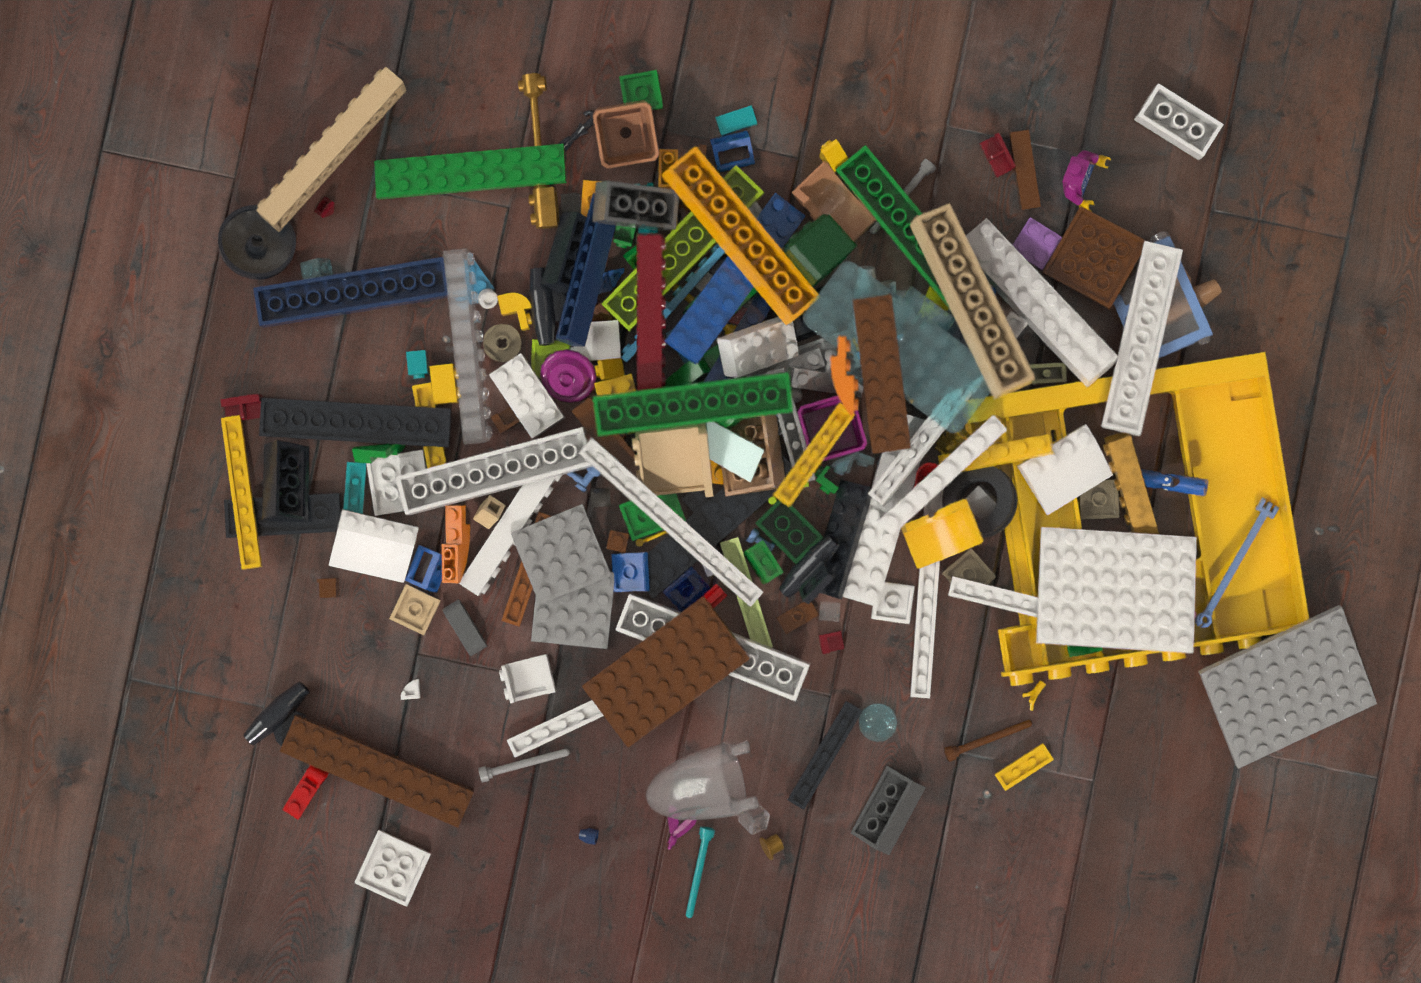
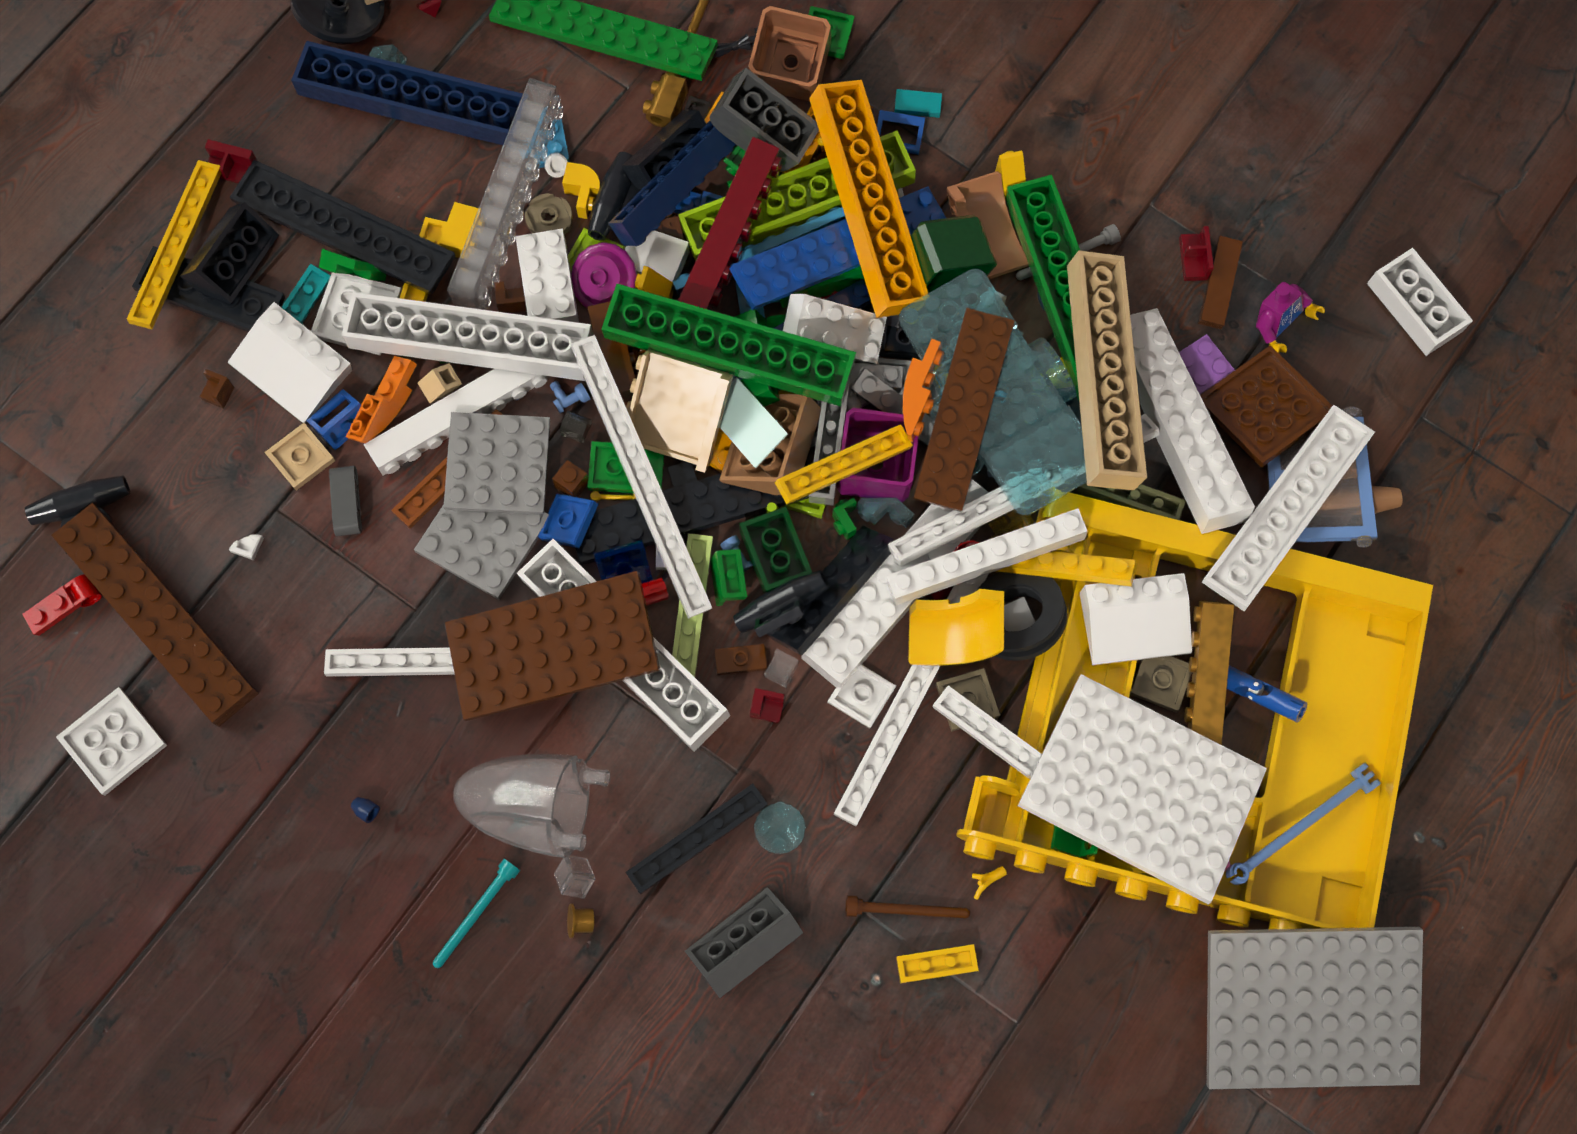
camera: 15 degrees right, 15 degrees down
(417, 363) = (443, 196): teal brick -> none
(487, 773) = (281, 678): light grey piece -> none
(527, 678) = (387, 591): white panel -> none
(678, 830) = (475, 852): magenta piece -> none

